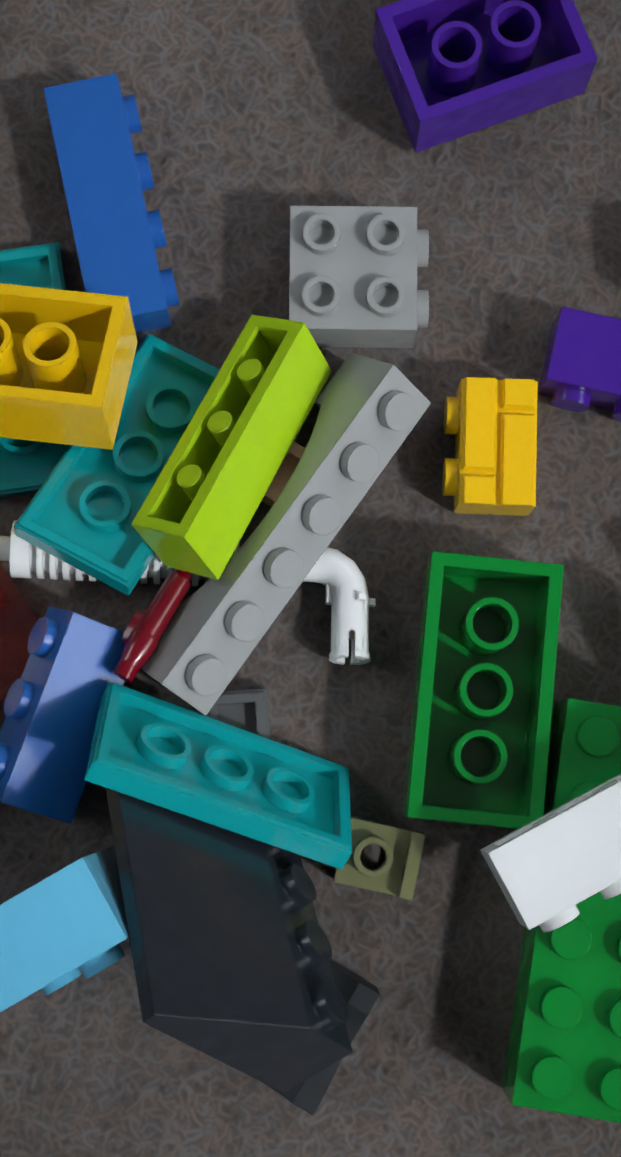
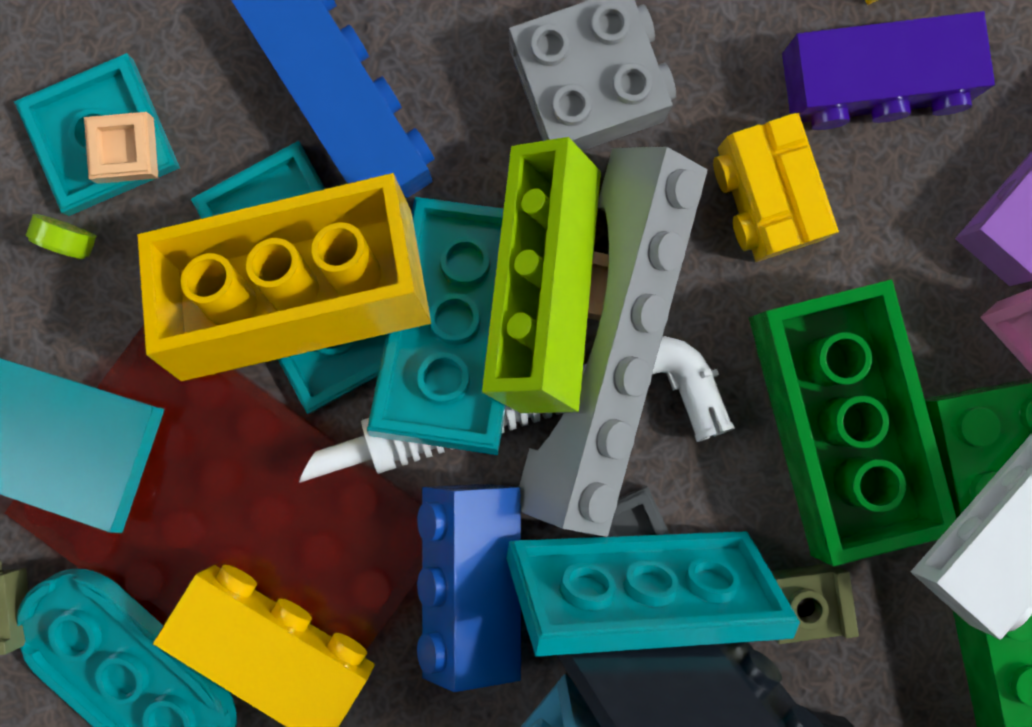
camera: 25 degrees left, 5 degrees up
(148, 626) = (525, 474): dark red piece -> none

